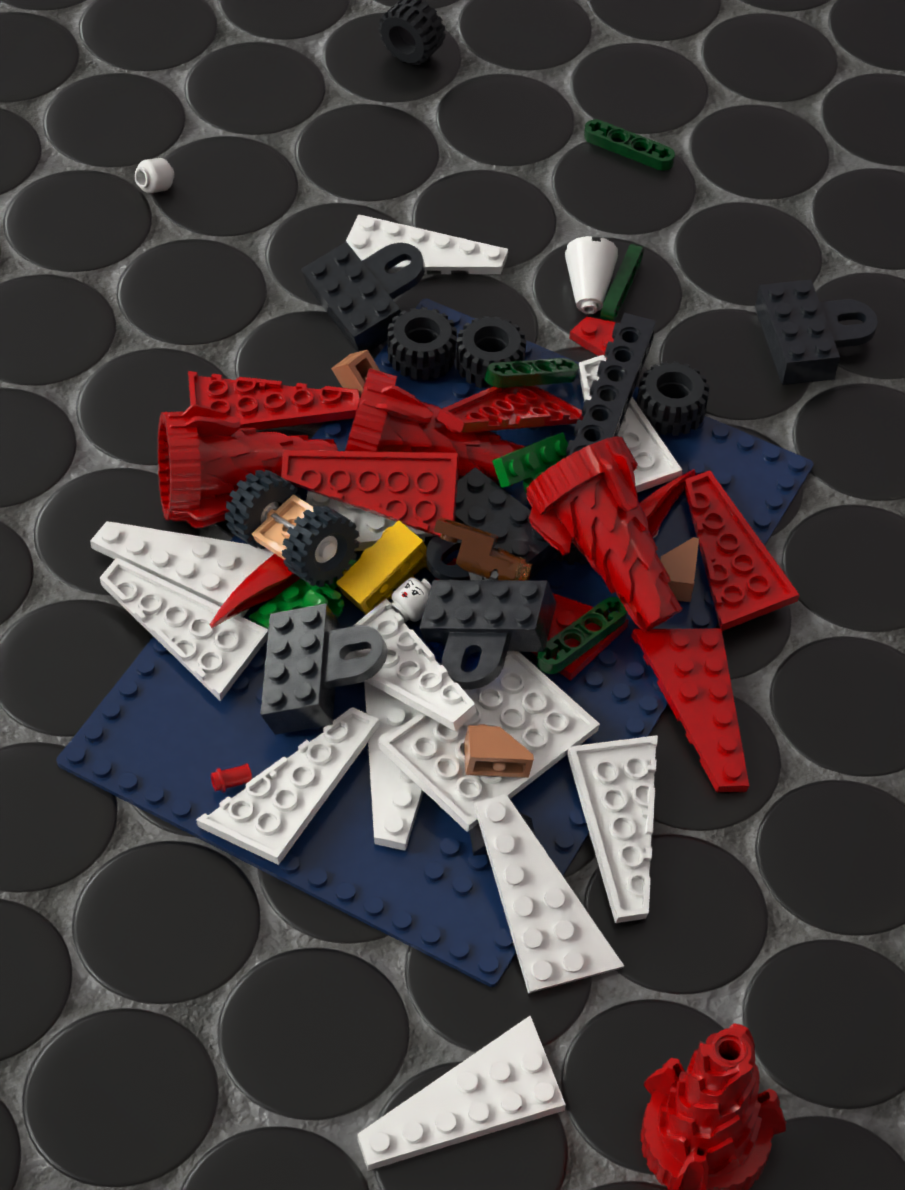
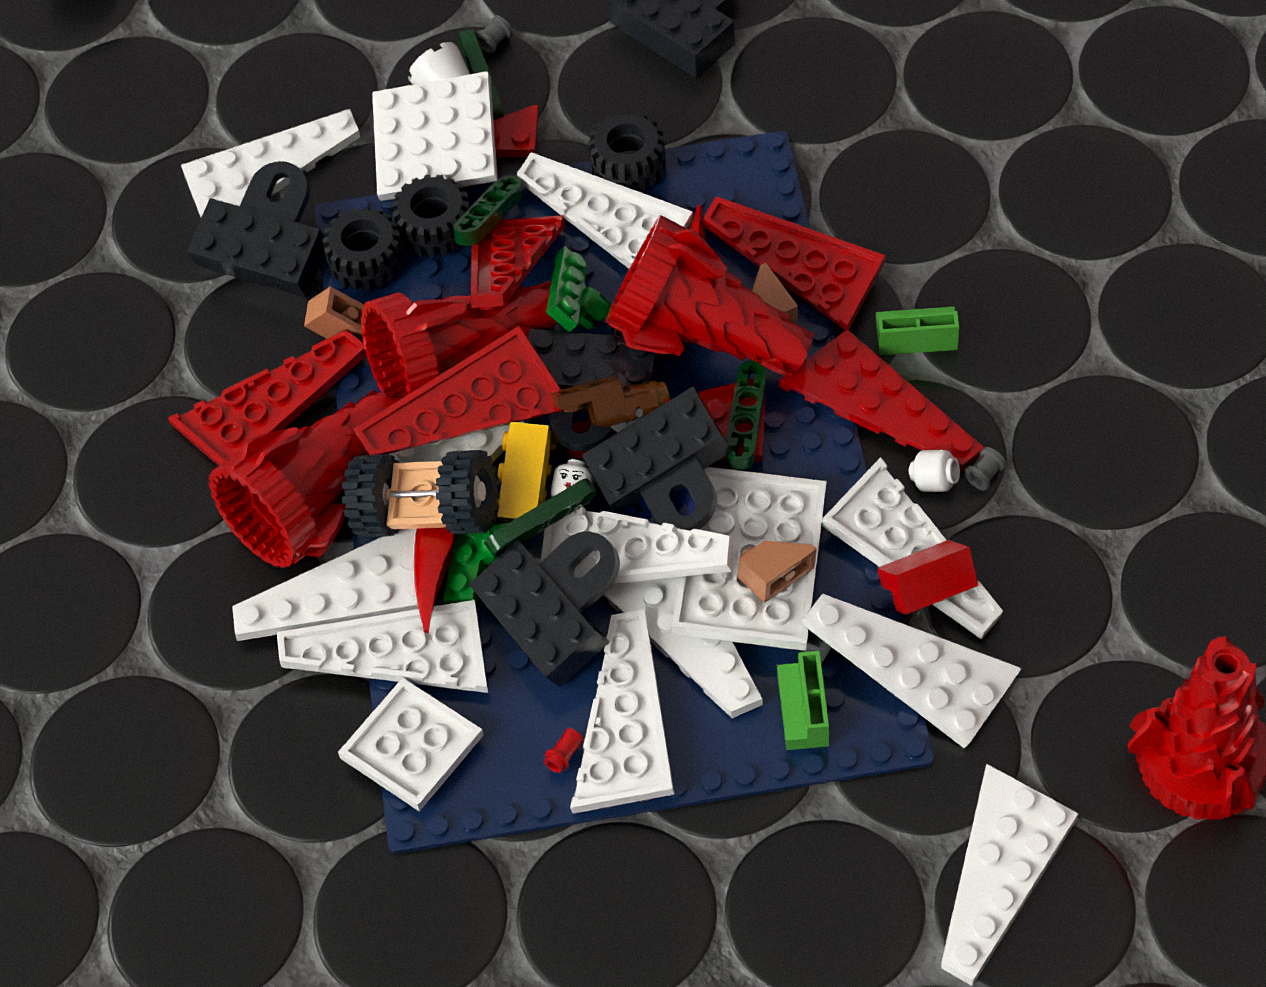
camera: 30 degrees left, 5 degrees up
(133, 697) = (410, 744): none -> white plate
(361, 601) = (541, 517): none -> dark green beam
(432, 869) = (803, 702): none -> bright green piece
(547, 298) = (433, 131): none -> white plate
(607, 843) = (929, 576): none -> red piece
(616, 382) = (581, 191): black brick -> none
(658, 261) = (494, 34): none -> dark grey bush
(693, 775) = (934, 470): none -> white head
(735, 801) = (985, 468): none -> dark grey bush
(776, 666) = (917, 330): none -> bright green piece

